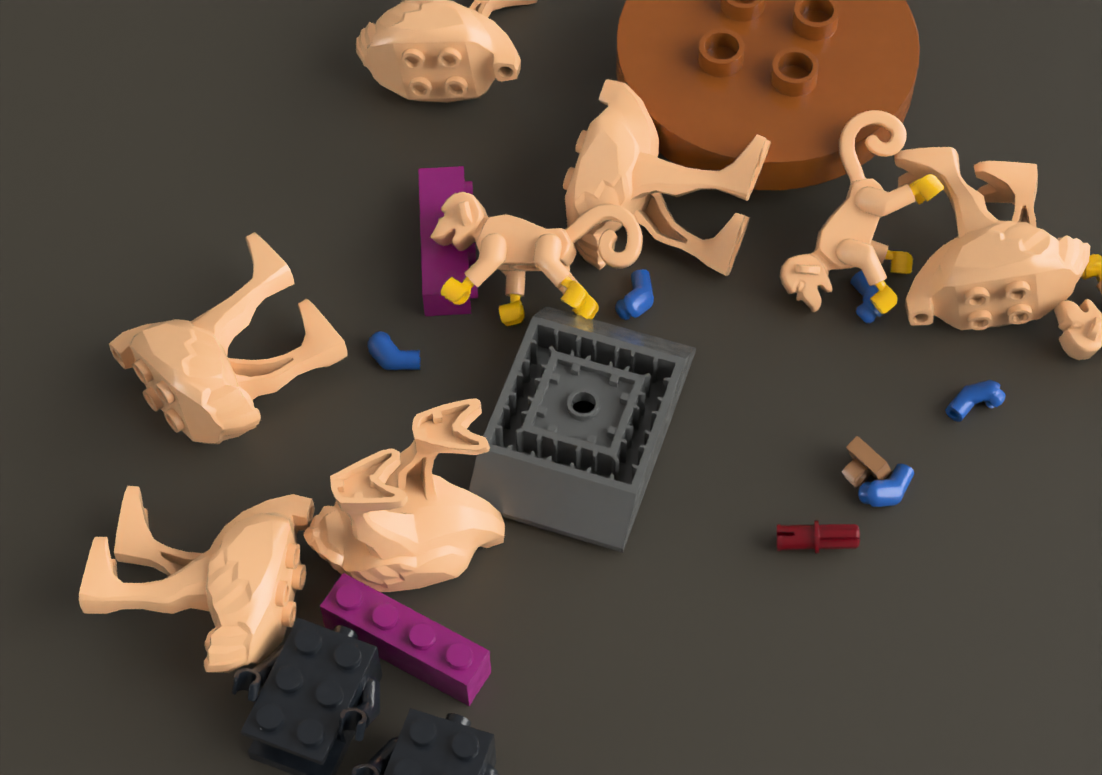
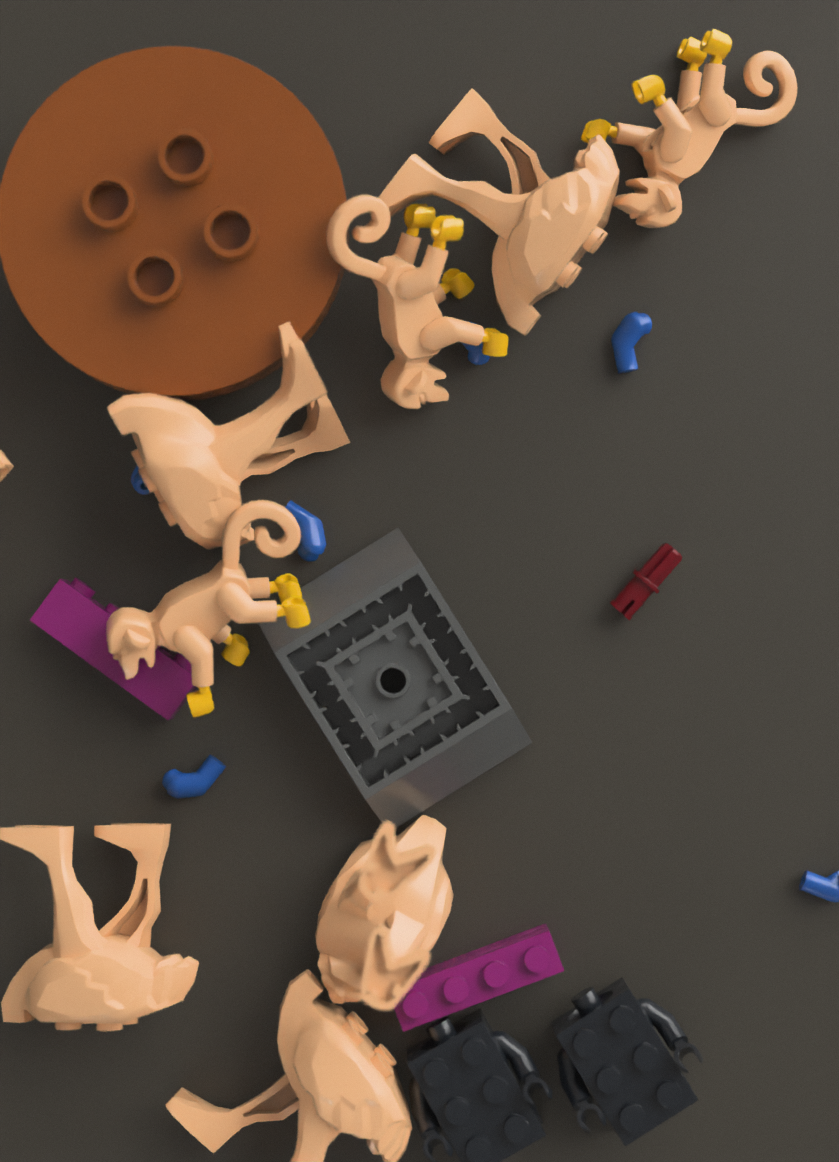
camera: 55 degrees left, 30 degrees up
(864, 463) = (616, 485): medium nougat tile -> none
(887, 492) = (653, 486): blue arm -> none

